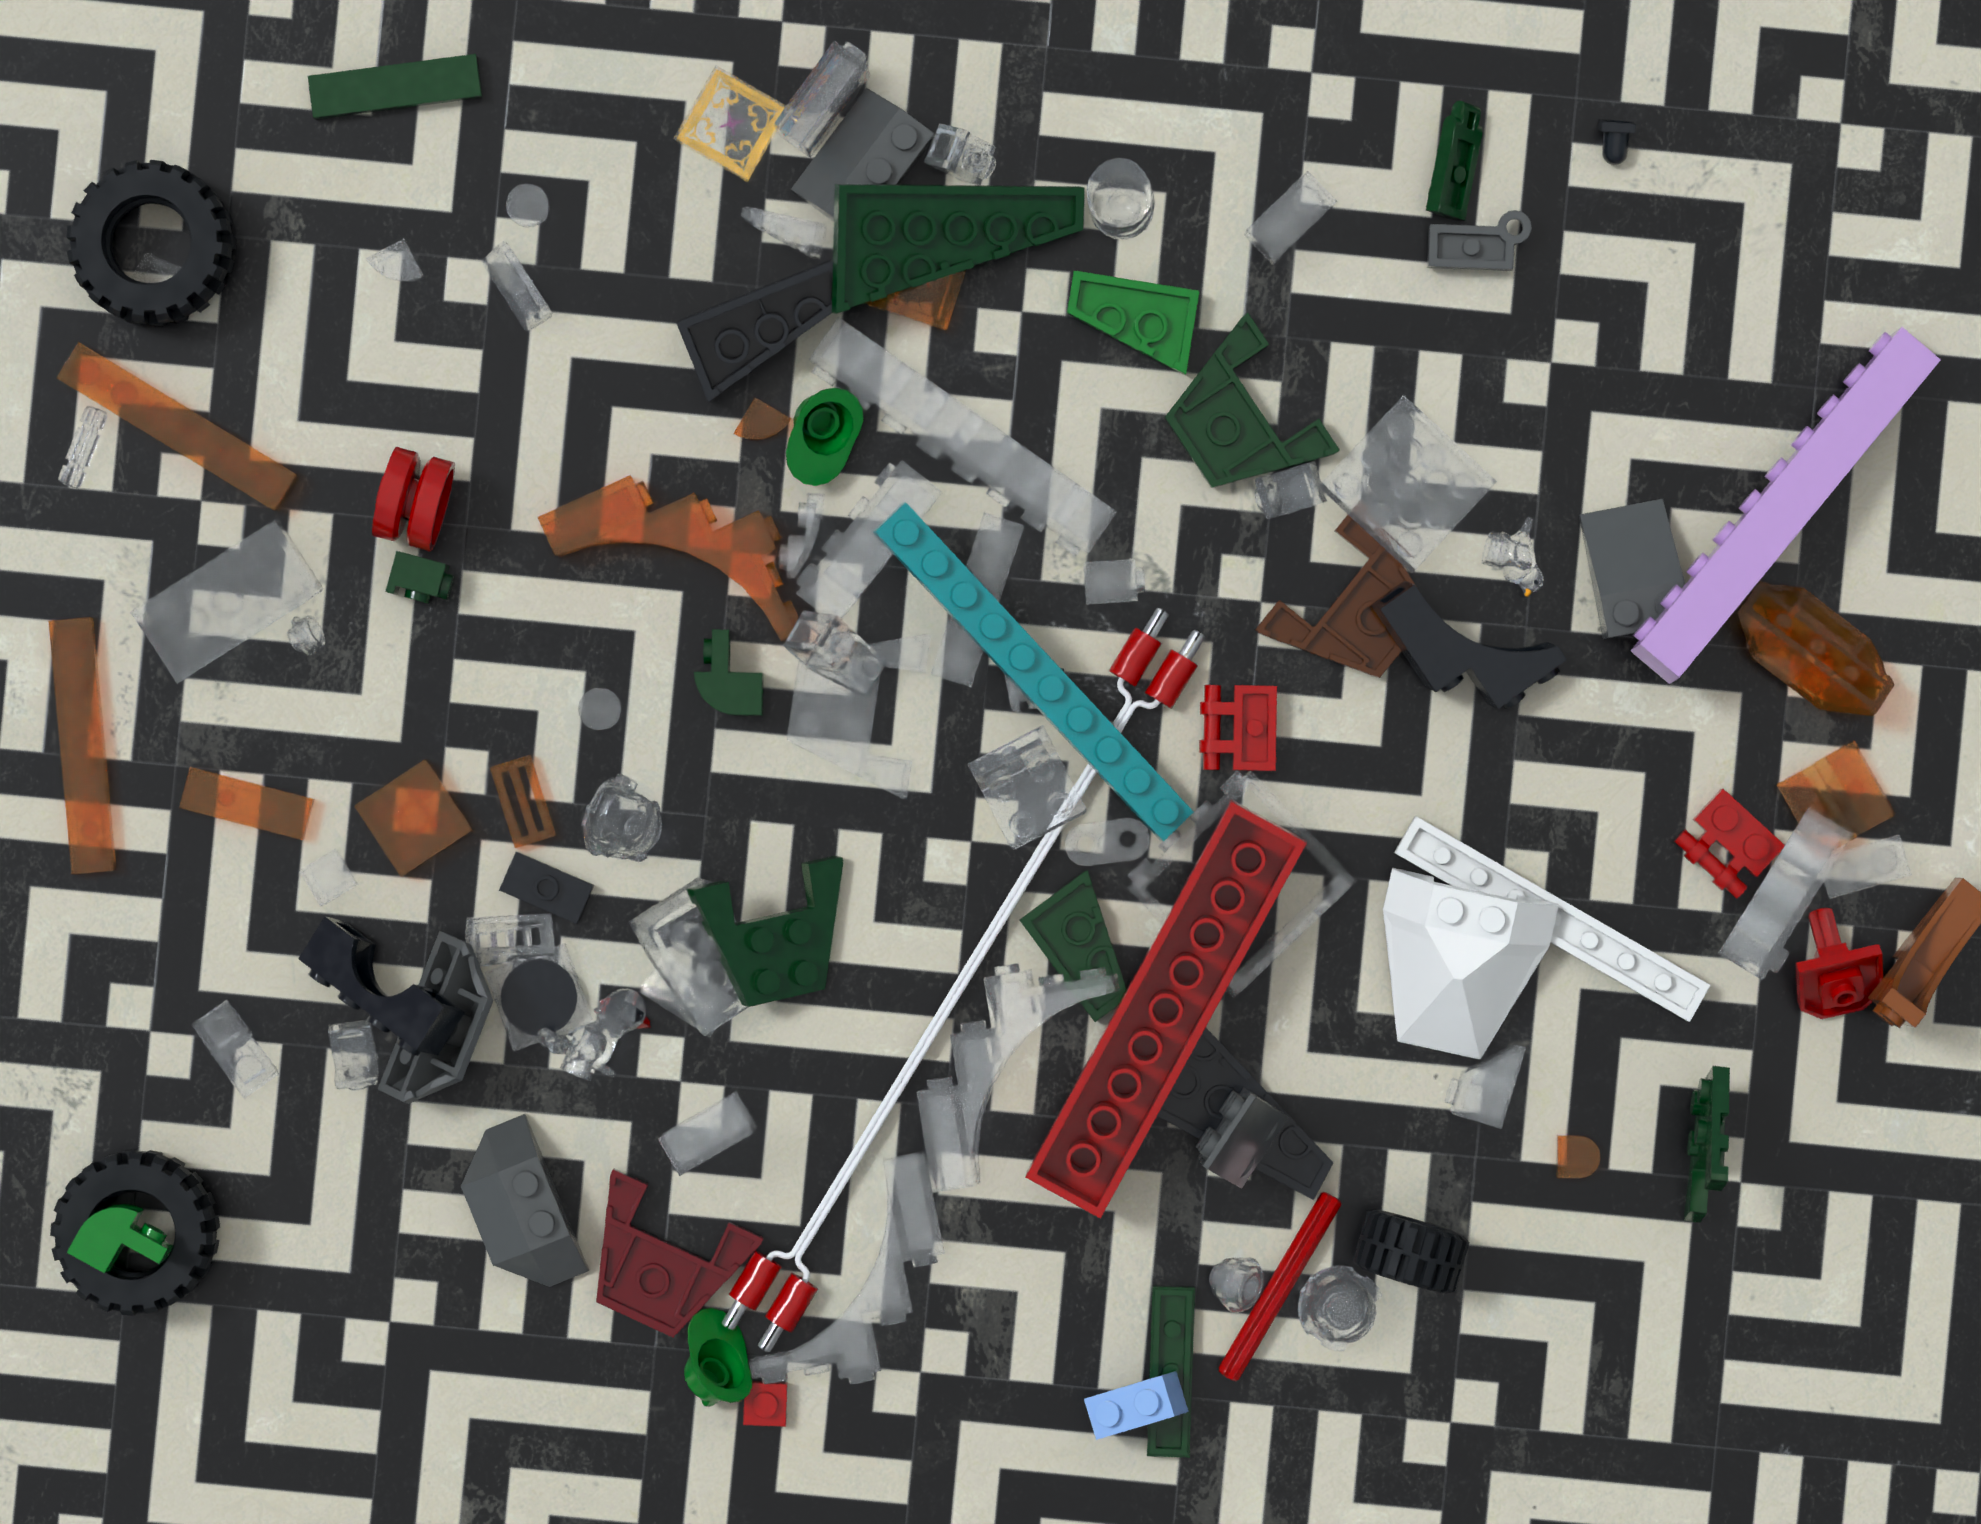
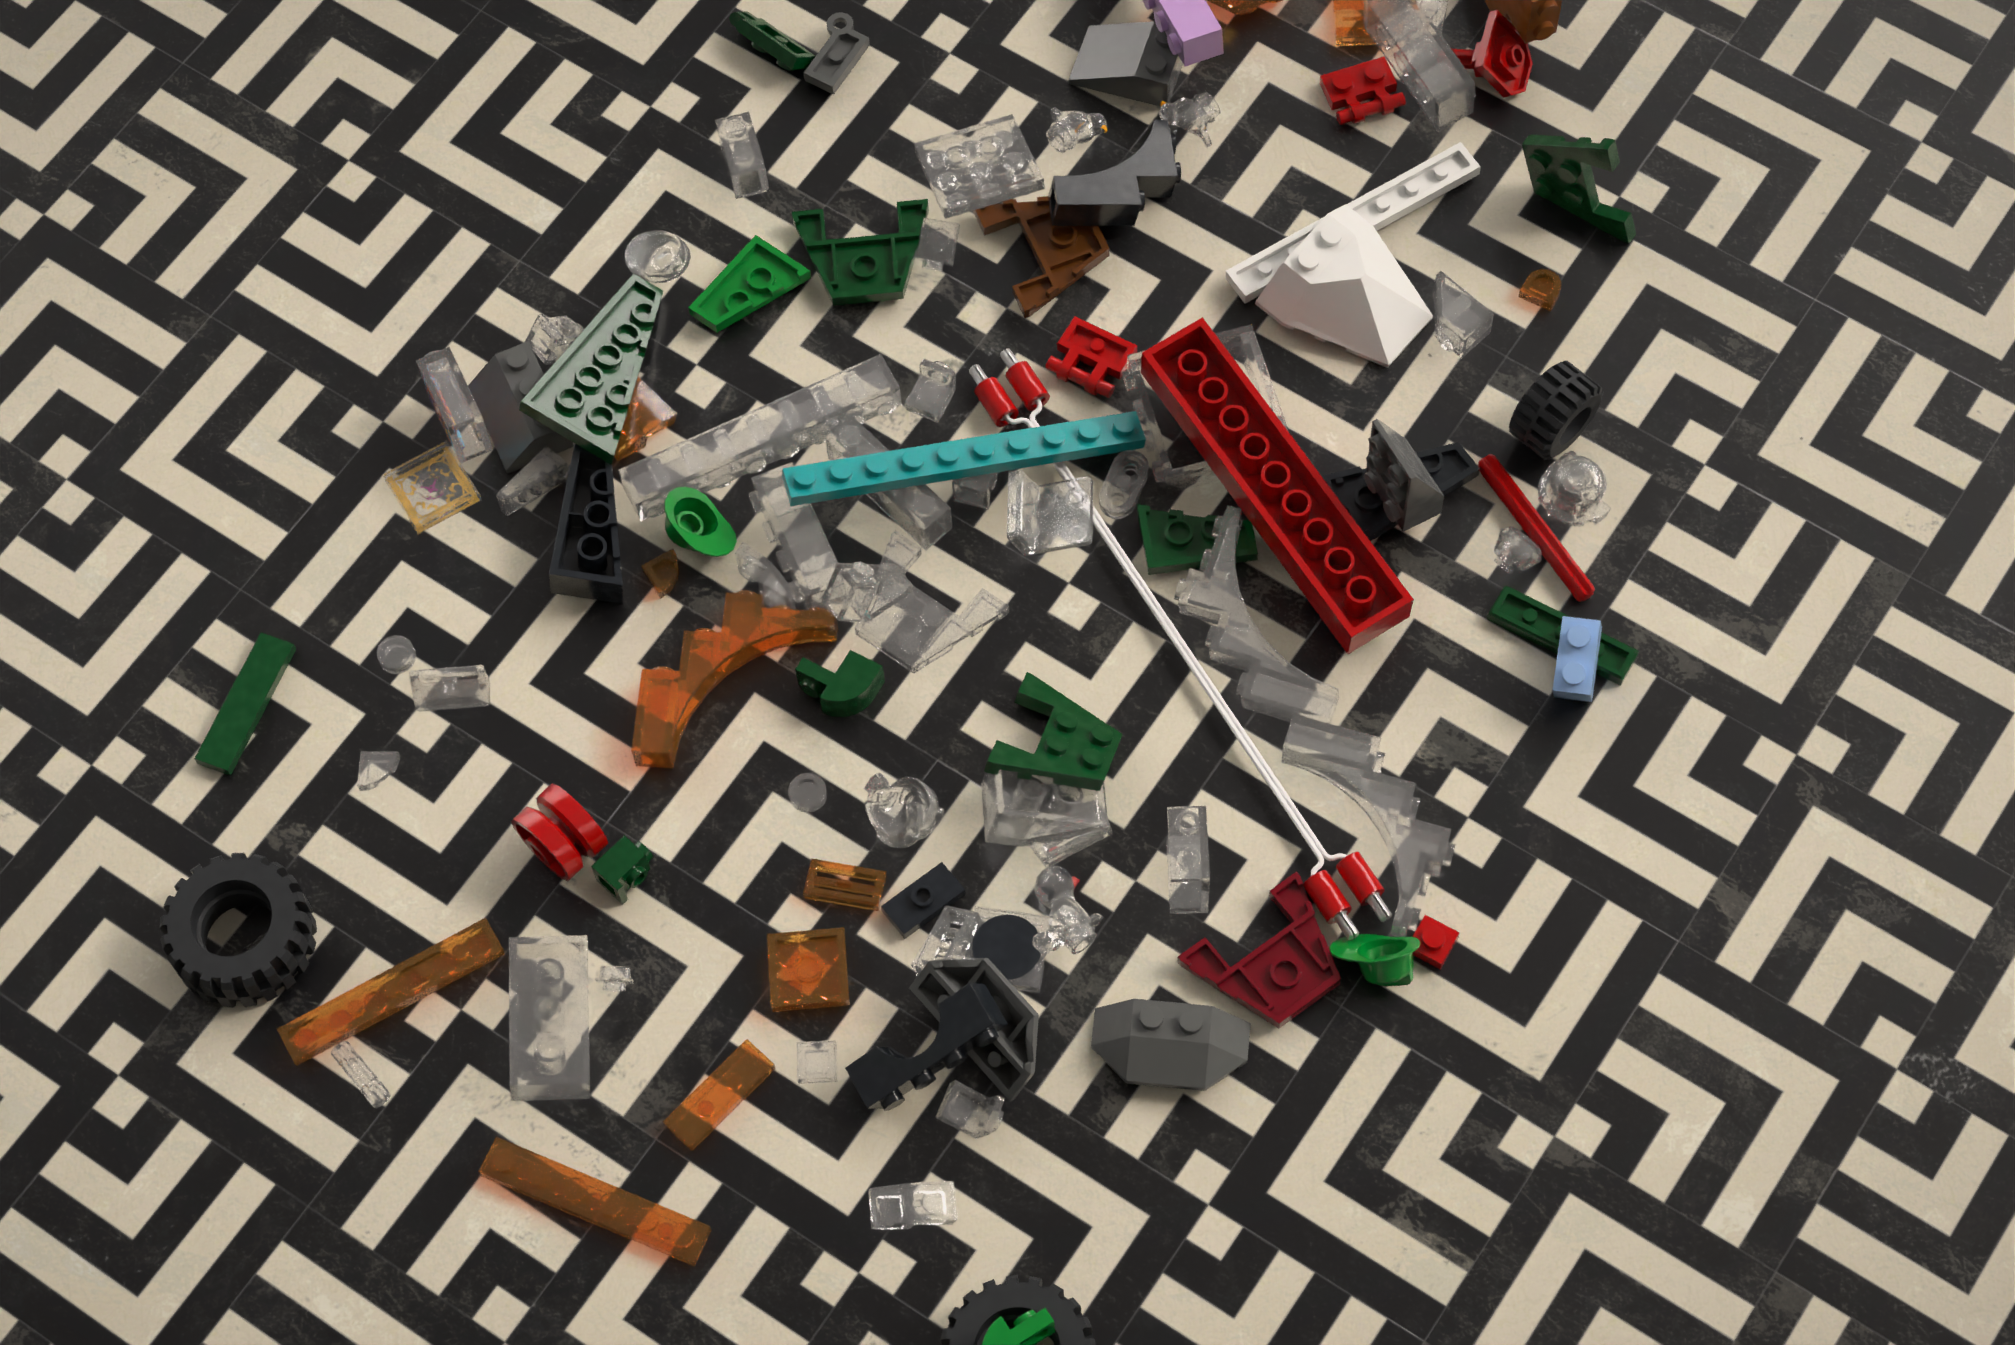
camera: 55 degrees left, 25 degrees down
(1597, 675) = (1192, 114): none -> clear animal

